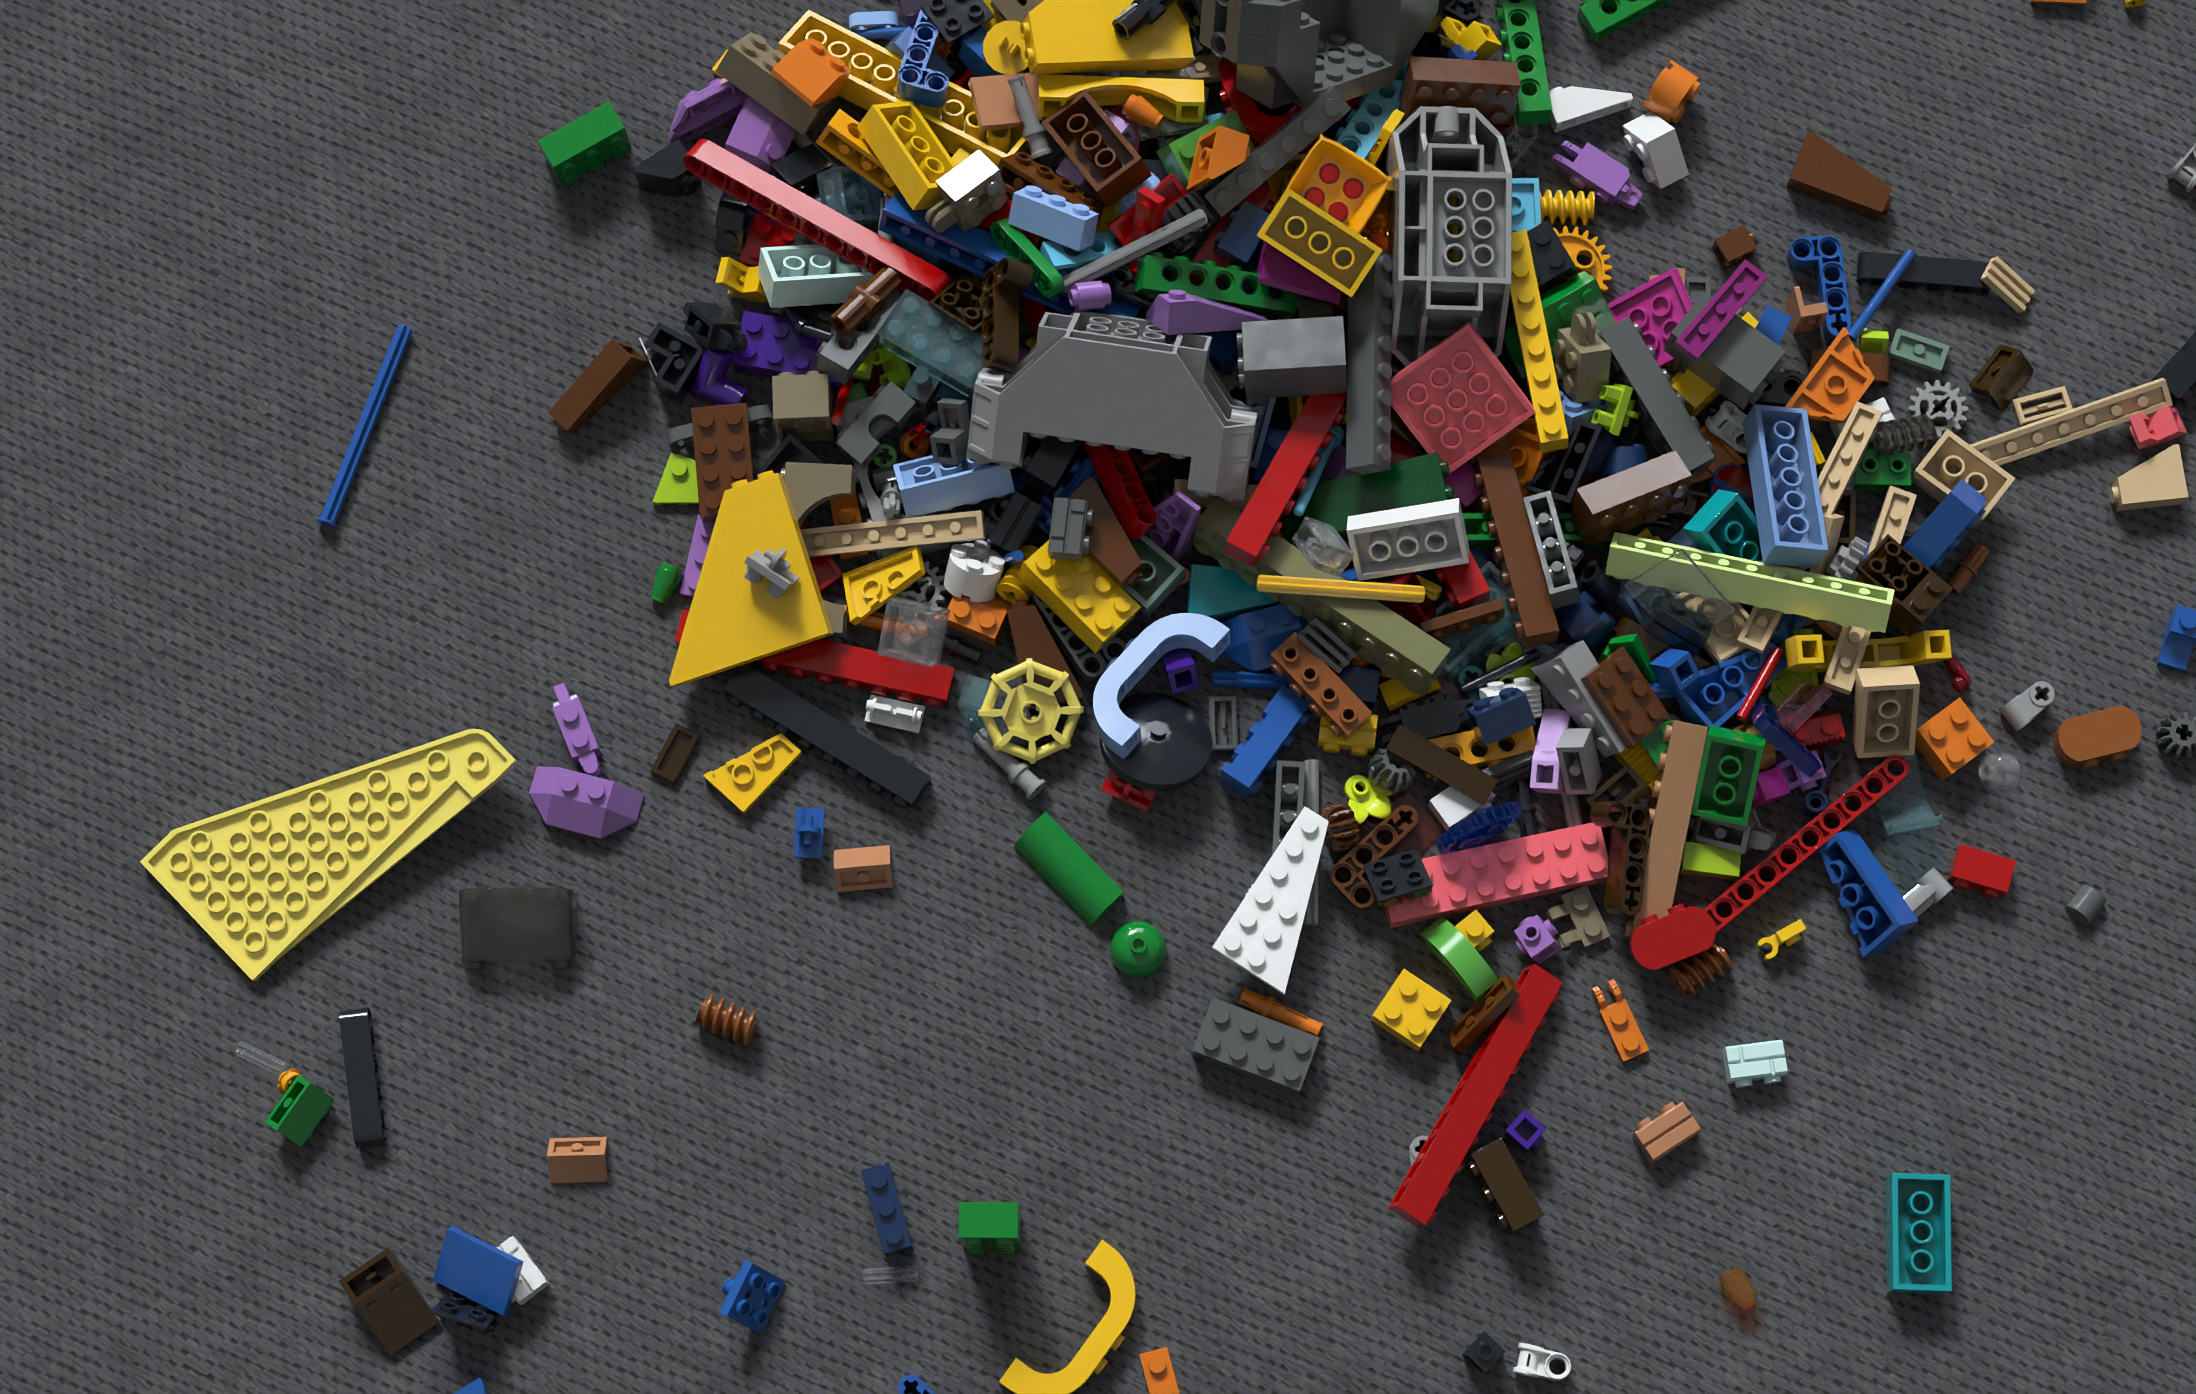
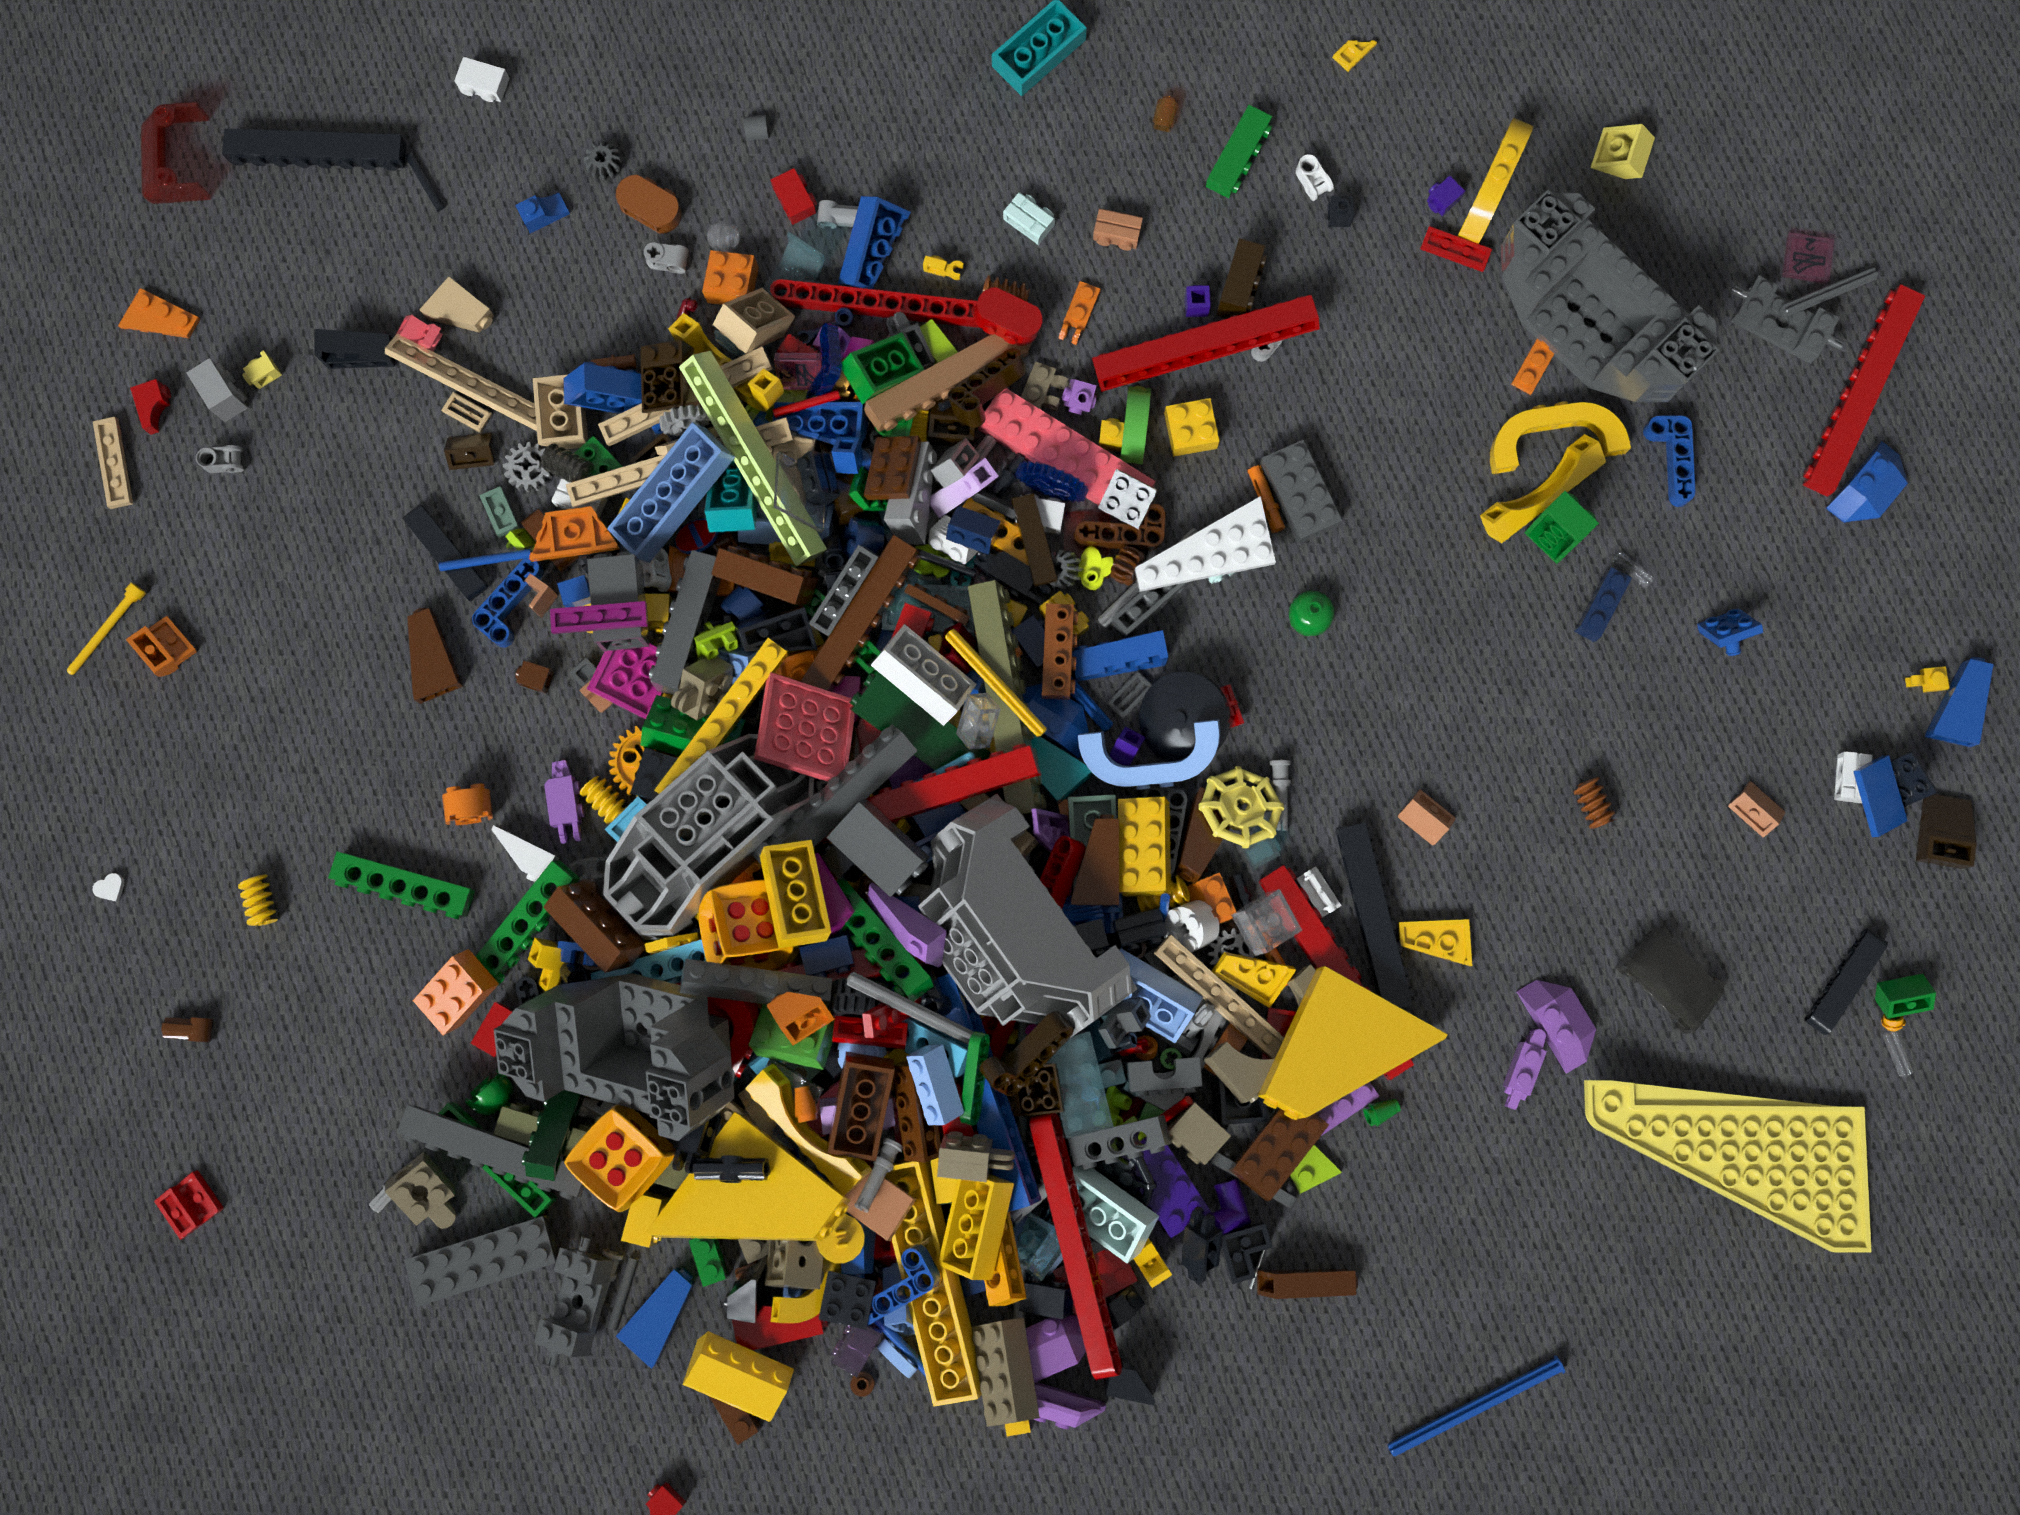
camera: 135 degrees left, 5 degrees up
(585, 144) = (1164, 1458): green brick -> none
(675, 754) = (1474, 997): dark brown tile -> none
(774, 568) = (1326, 1035): light grey hips -> none
(809, 833) = (1441, 866): blue hips -> none
(811, 72) = (982, 1351): orange slope -> none
(865, 301) = (1101, 1154): reddish brown piece -> none
(1033, 1320) = (1578, 463): none -> yellow arch
(1068, 869) = (1306, 697): green brick -> none
(1069, 529) = (1120, 879): dark grey brick -> none
(1090, 295) = (962, 1012): medium lavender brick -> none
(1344, 660) = (1035, 667): dark grey tile -> none
(1483, 1013) = (1154, 382): reddish brown plate -> none
(1634, 1320) = (1239, 151): none -> green brick
(1657, 147) = (513, 781): white brick -> none
(2008, 281) = (402, 497): tan tile -> none

